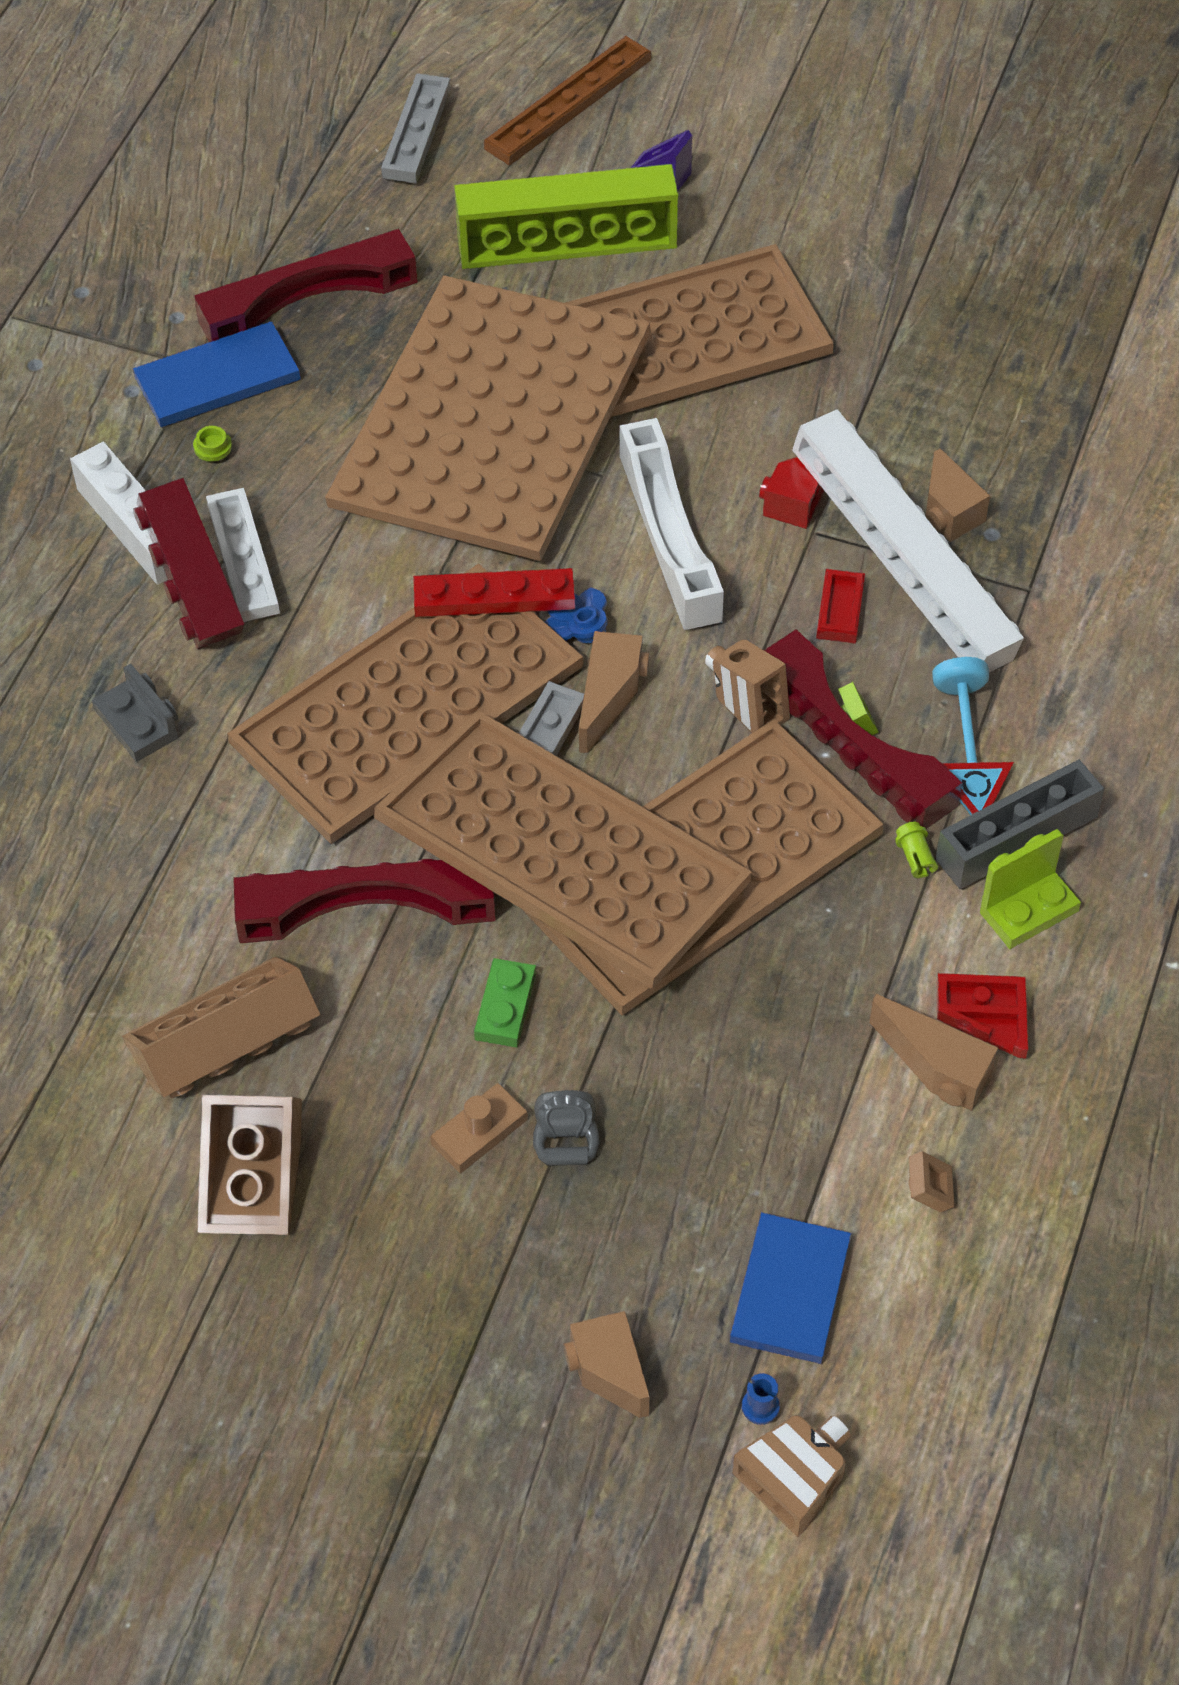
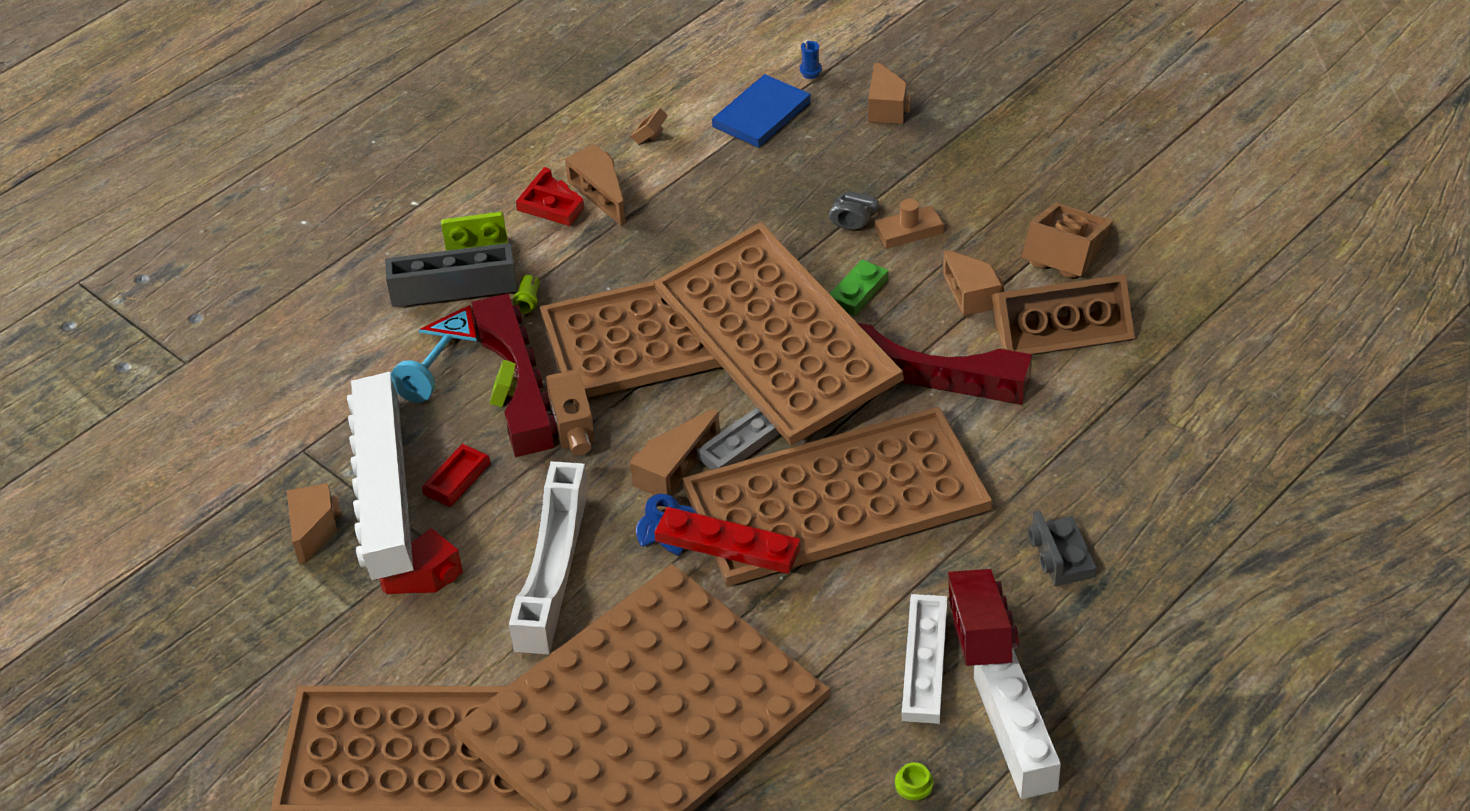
camera: 155 degrees left, 10 degrees down
(354, 1037) = (971, 282): none -> medium nougat slope
(794, 1468) = (809, 25): medium nougat torso -> none

